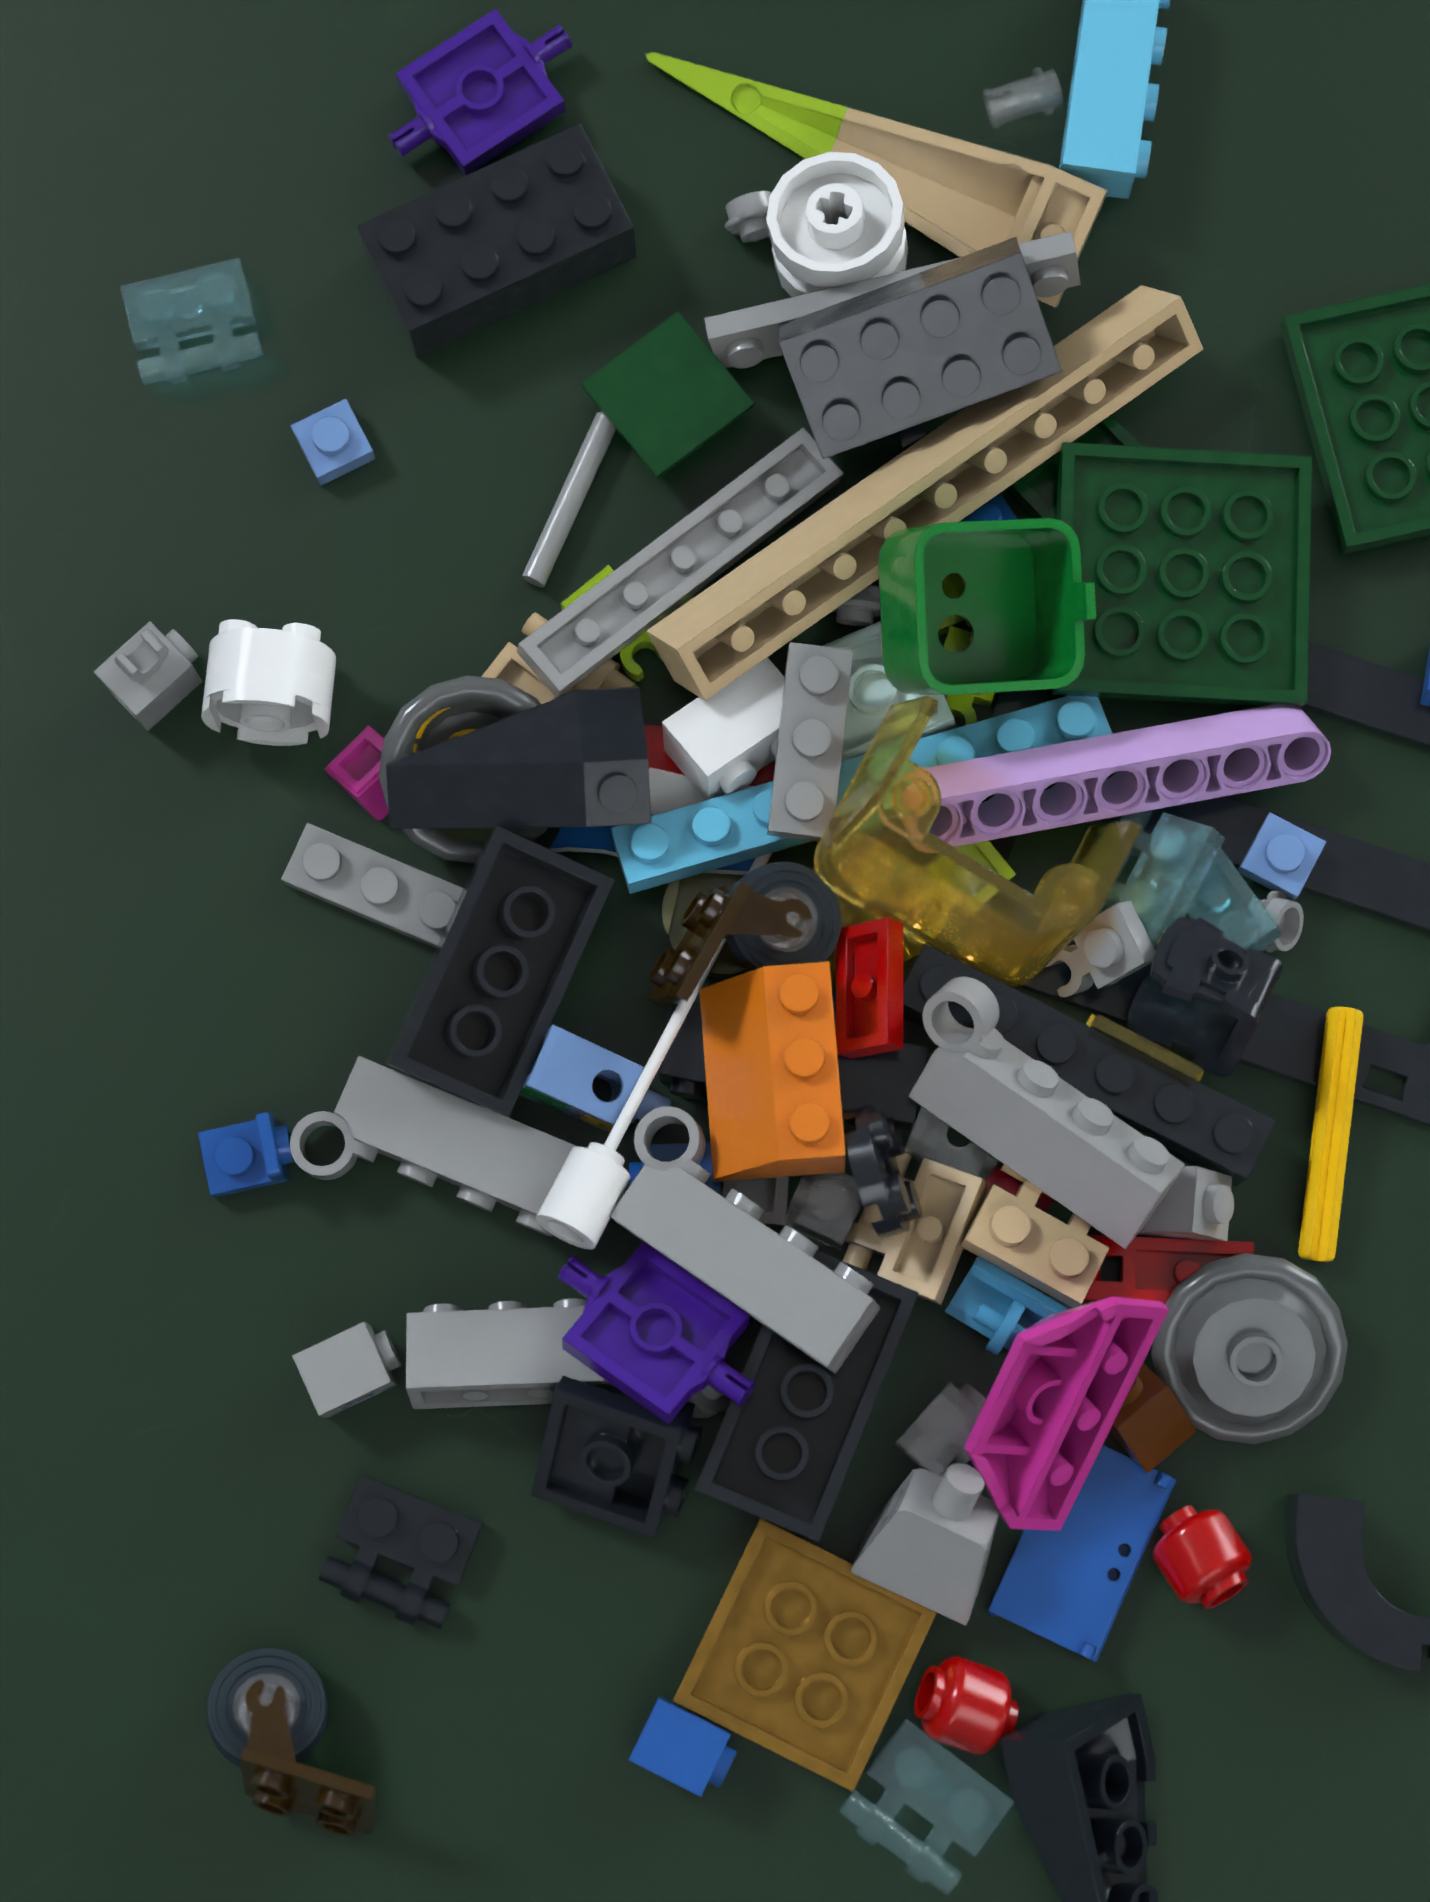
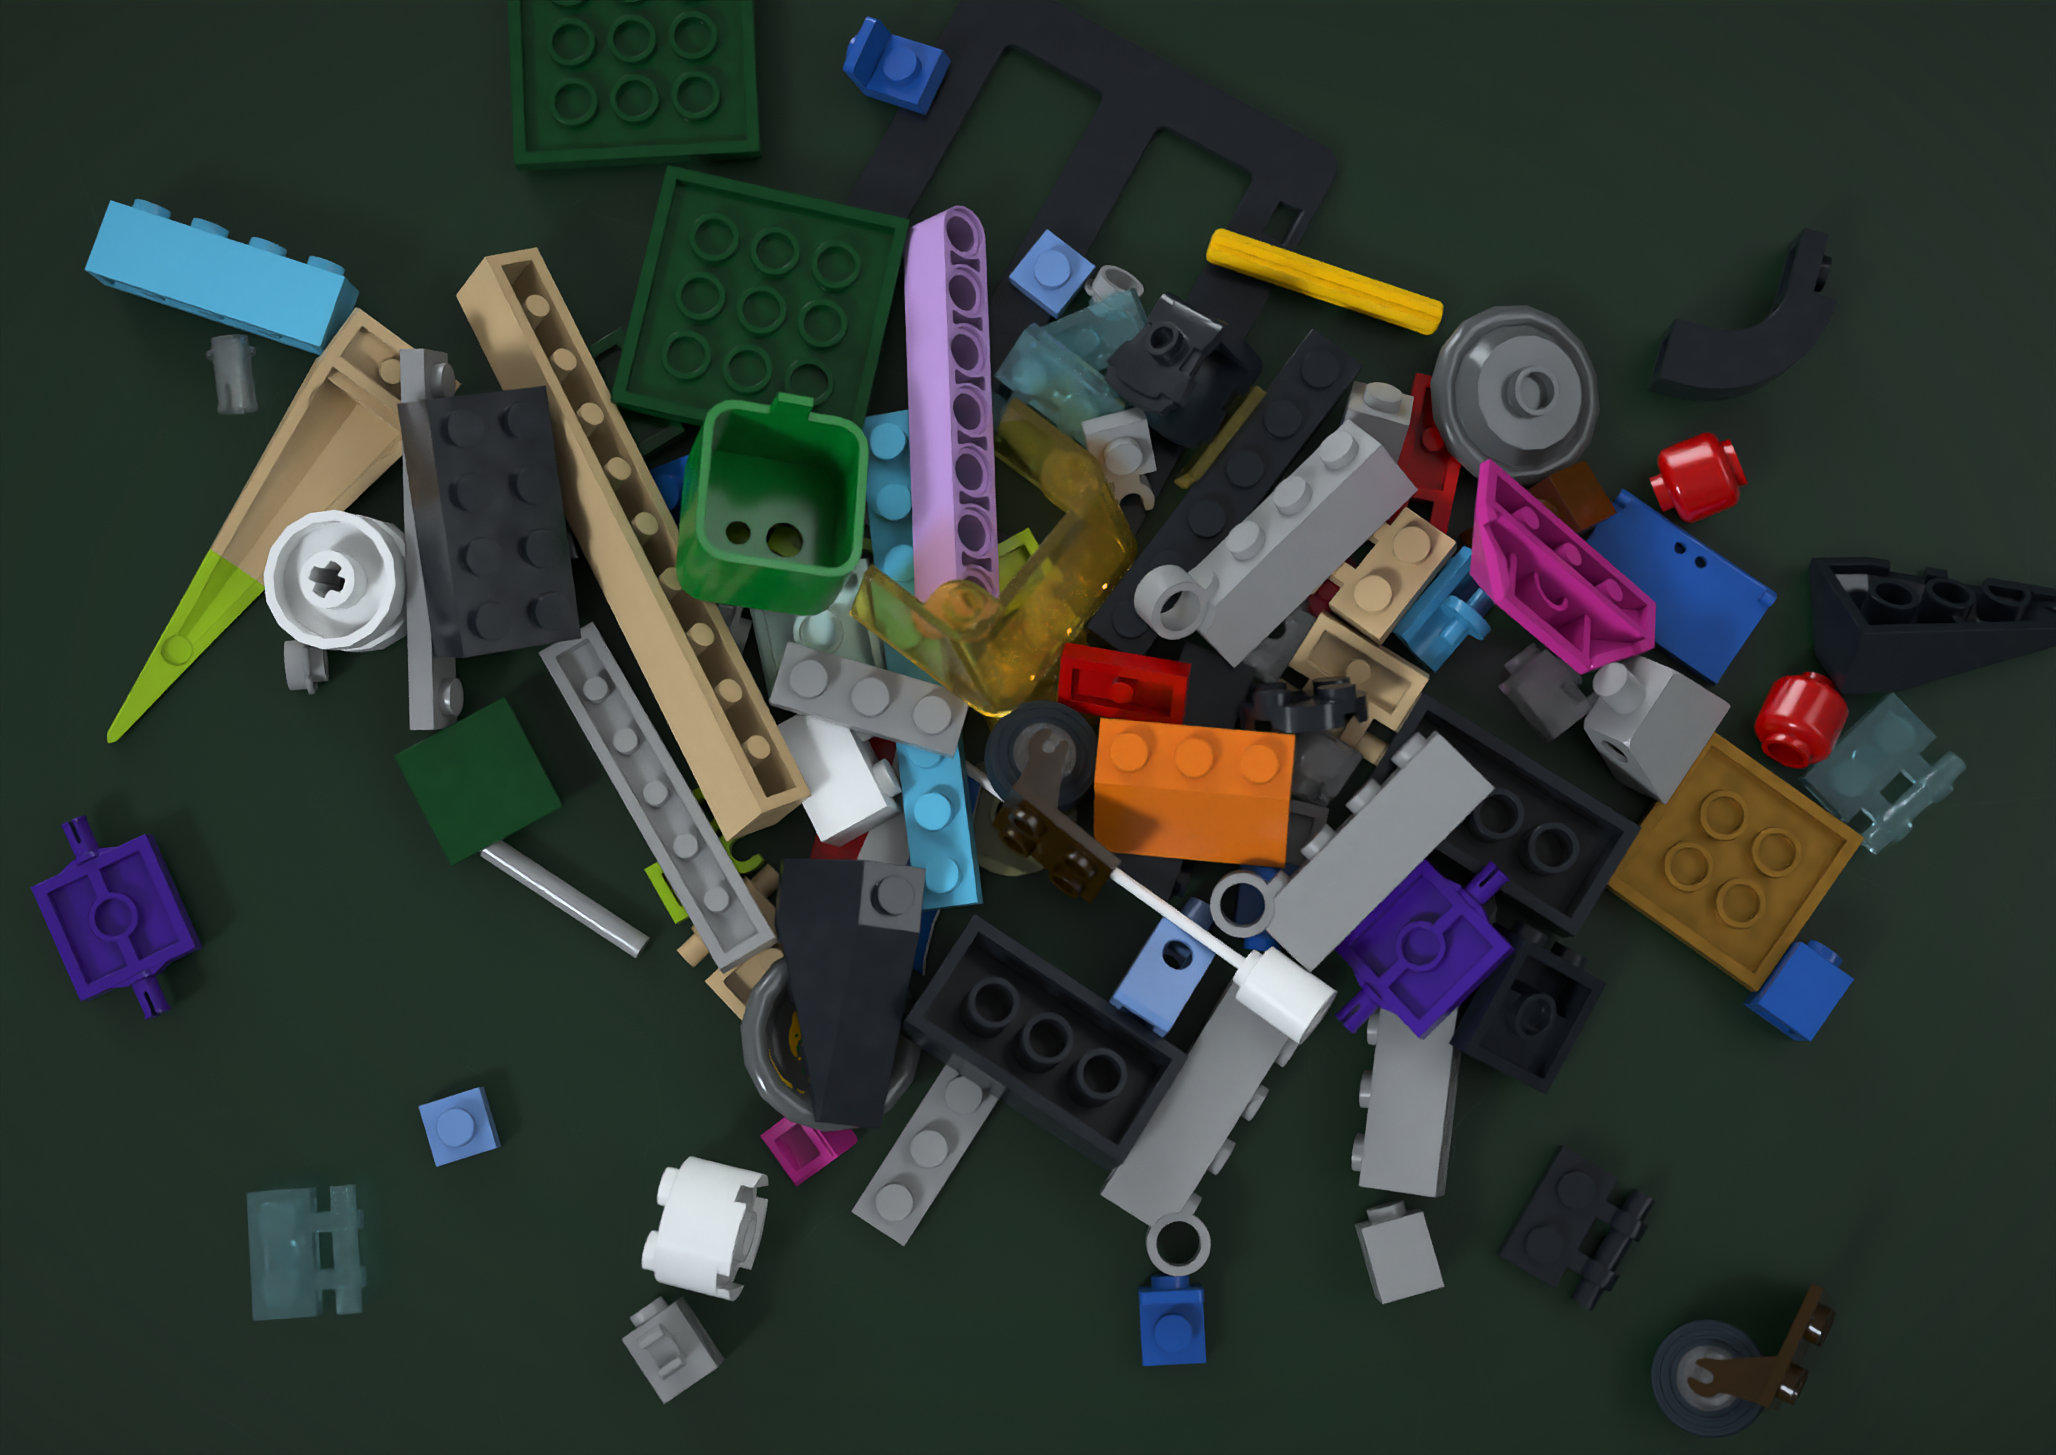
camera: 80 degrees left, 5 degrees up
(498, 240) = (282, 924): black brick -> none

